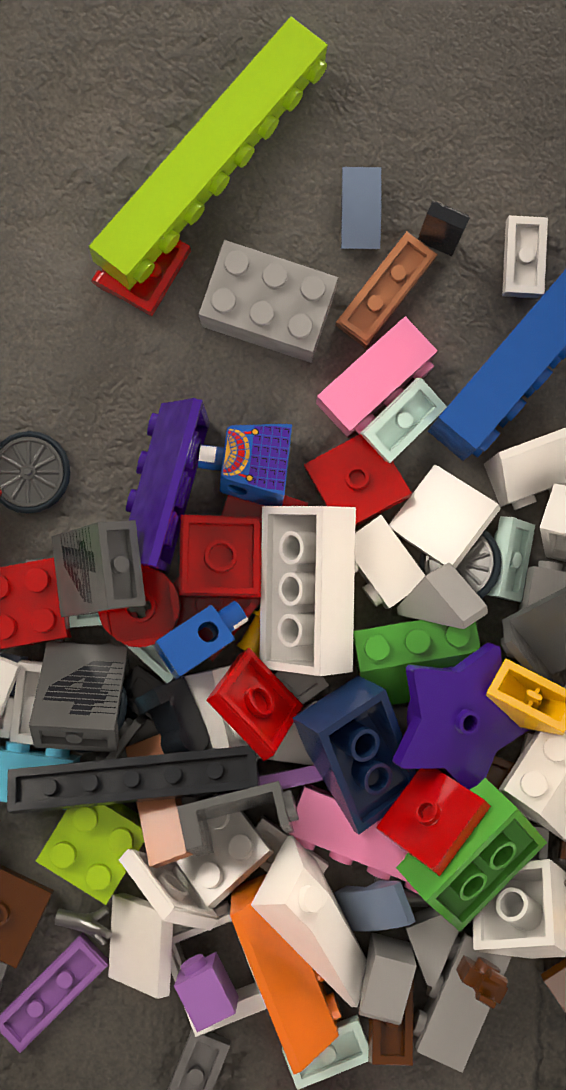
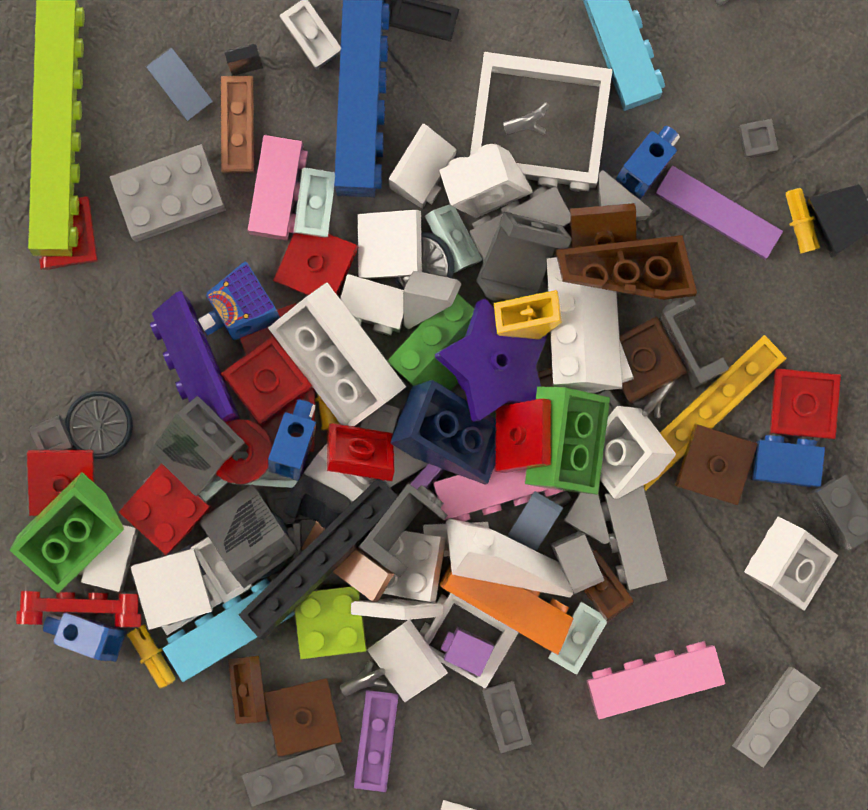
camera: 35 degrees left, 0 degrees up
(484, 979) = (630, 508): reddish brown plate -> none

